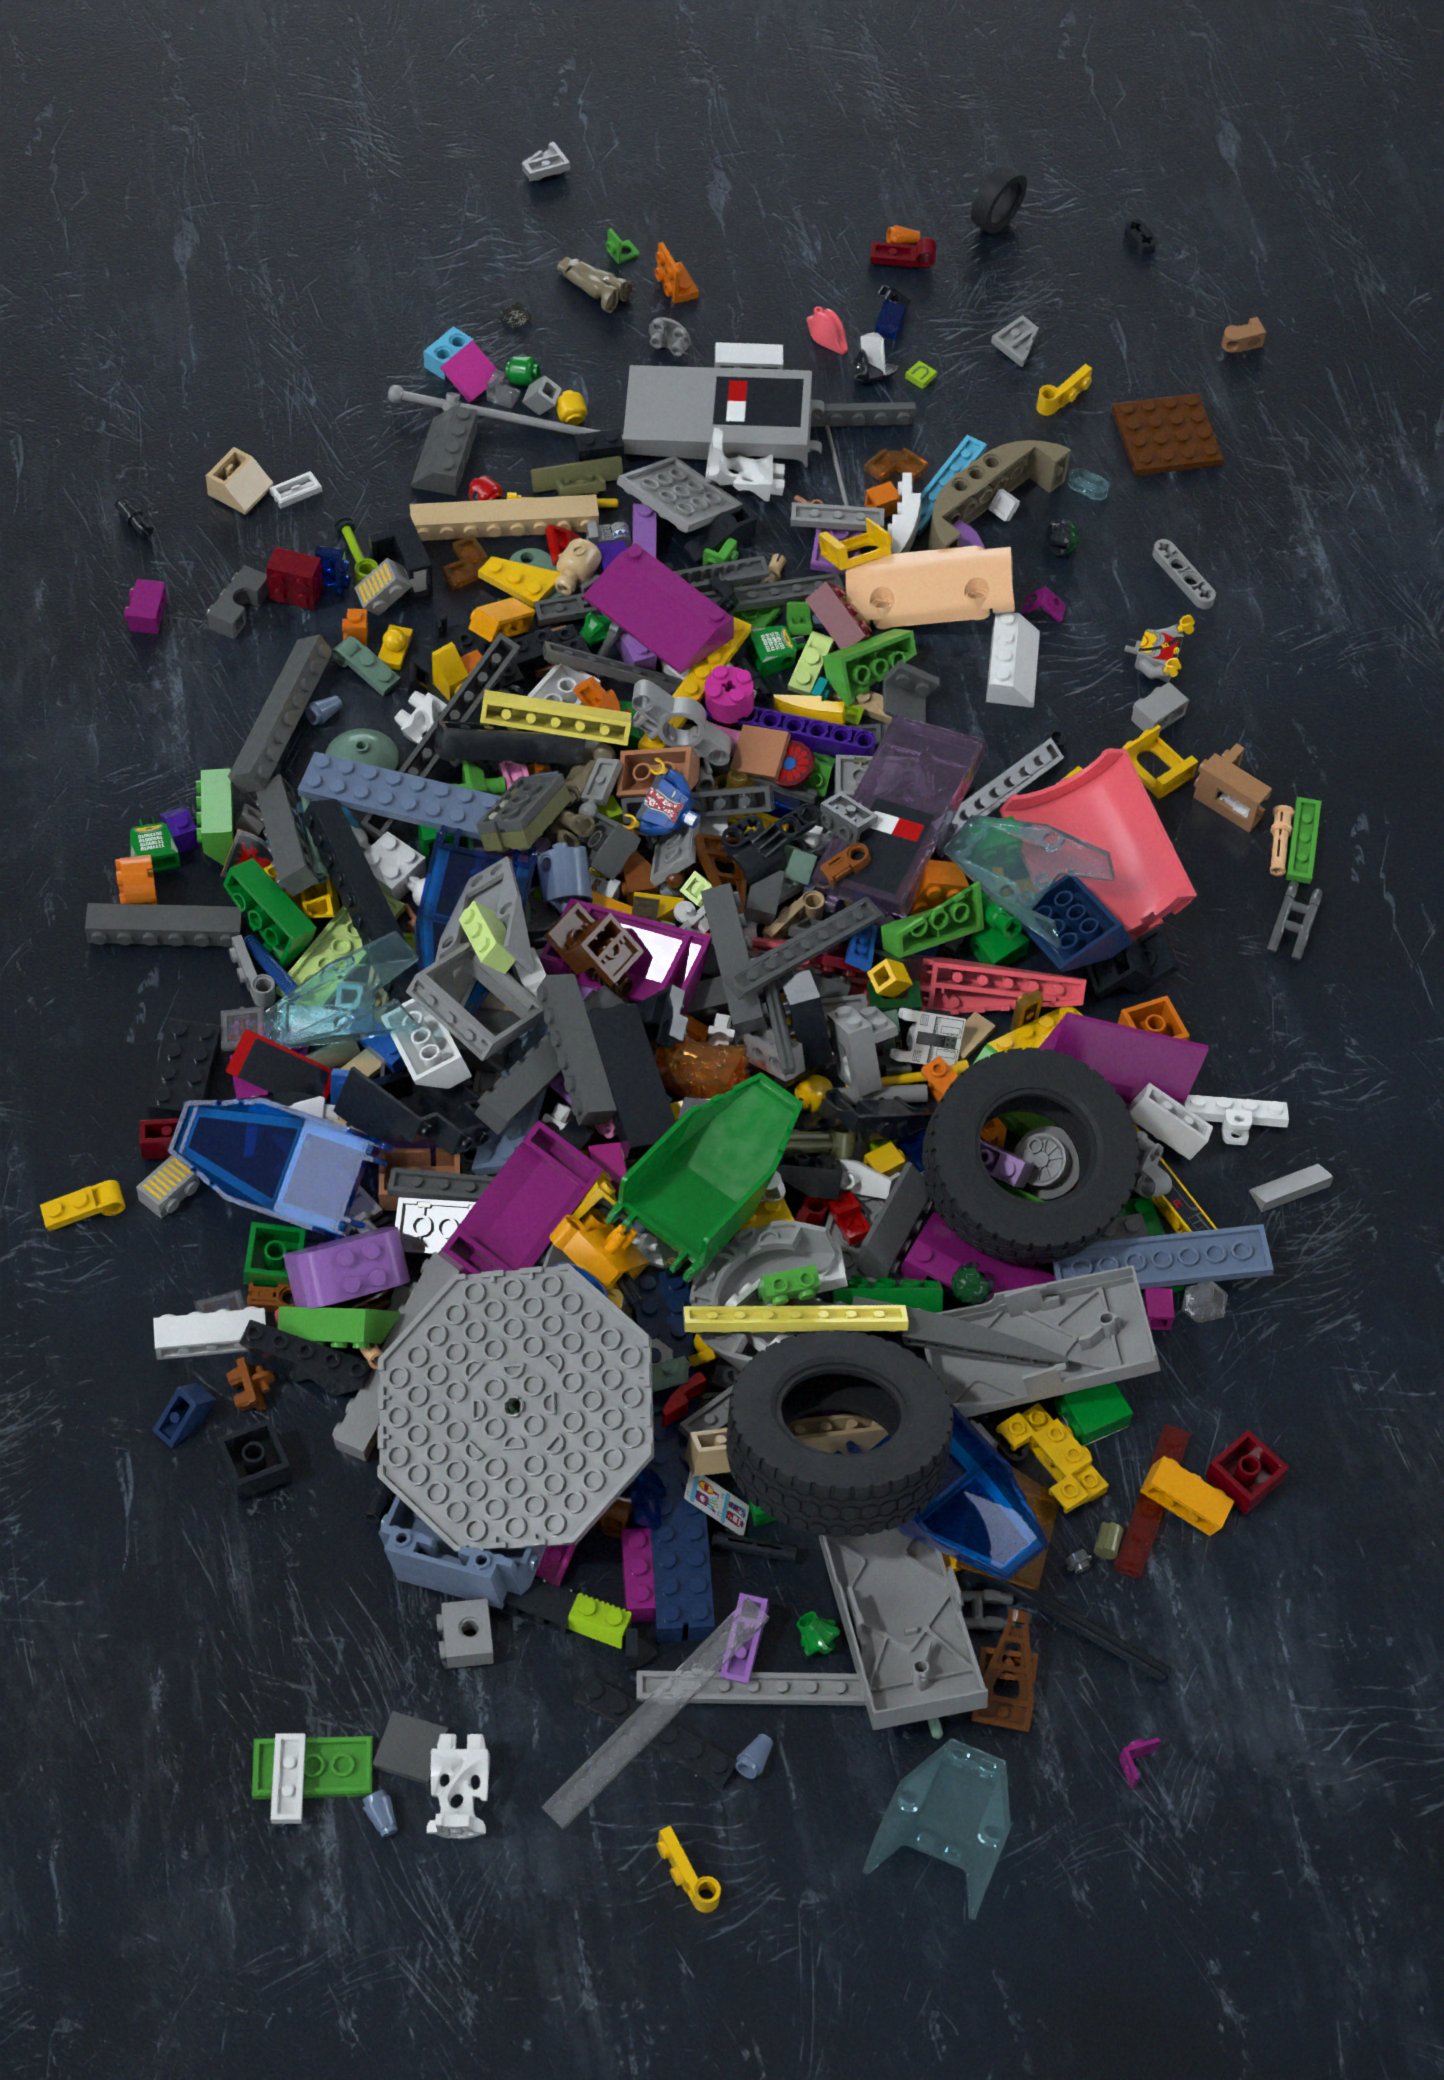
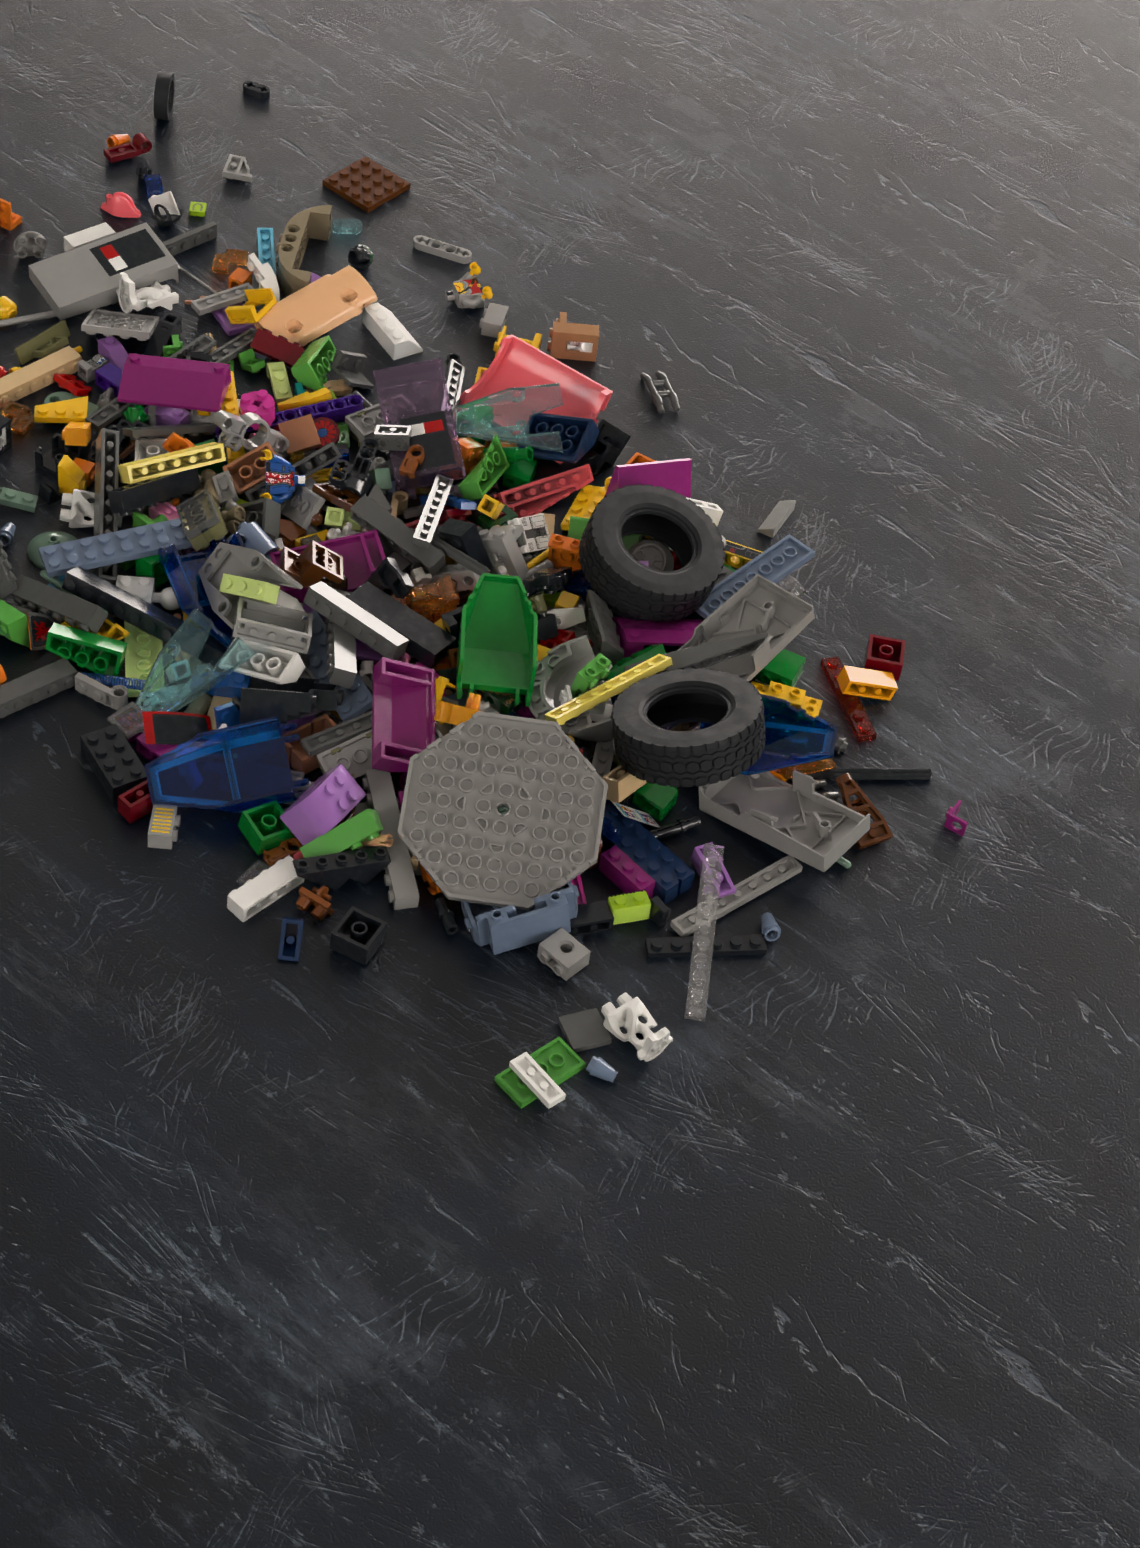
camera: 40 degrees left, 10 degrees down
(95, 1199) = (118, 864): yellow plate -> none
(395, 646) = (17, 480): yellow tile -> none
(576, 565) = (94, 386): tan piece -> none
(598, 445) = (42, 320): black brick -> none
(684, 1874) = (788, 1001): yellow plate -> none
(773, 648) = (251, 380): green torso -> none
(817, 1633) = (747, 849): green rock -> none
(953, 1811) = (902, 892): clear light blue windscreen -> none
(971, 1284) = (675, 632): dark green piece -> none
(1004, 505) = (311, 255): white tile -> none
(1026, 1009) = (569, 492): pearl gold plate -> none
(1046, 600) = (386, 292): magenta bracket -> none
(1052, 398) = (287, 189): yellow plate -> none
(1108, 1540) = (846, 727): olive piece -> none
(1238, 1114) = (723, 494): white plate -> none
(1244, 337) = (363, 118): medium nougat leg -> none
(1281, 831) = (613, 351): light nougat pin -> none
(1303, 840) = (628, 350): bright green plate -> none

